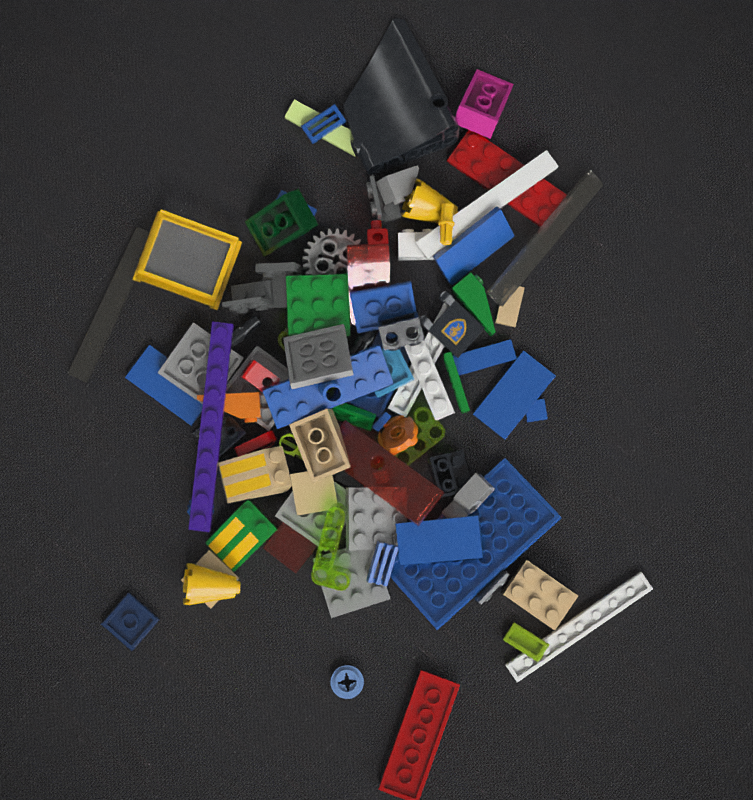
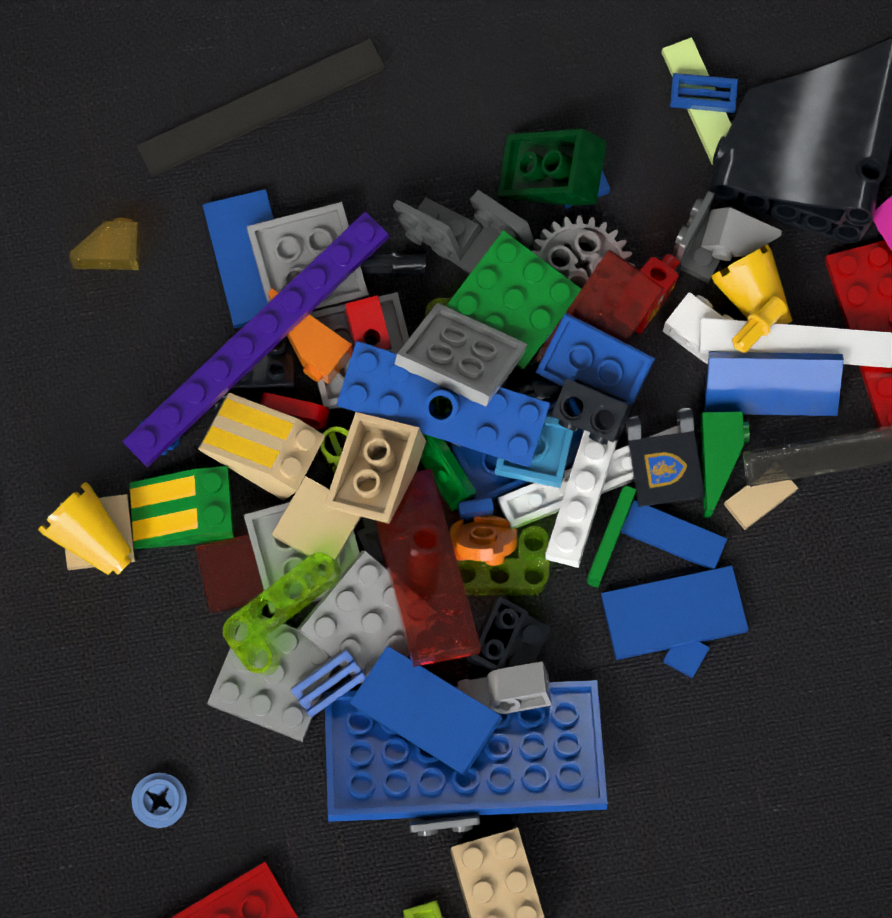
camera: 40 degrees right, 10 degrees down
(98, 435) = (109, 247): none -> clear yellow slope
(188, 259) = (401, 124): piece -> none

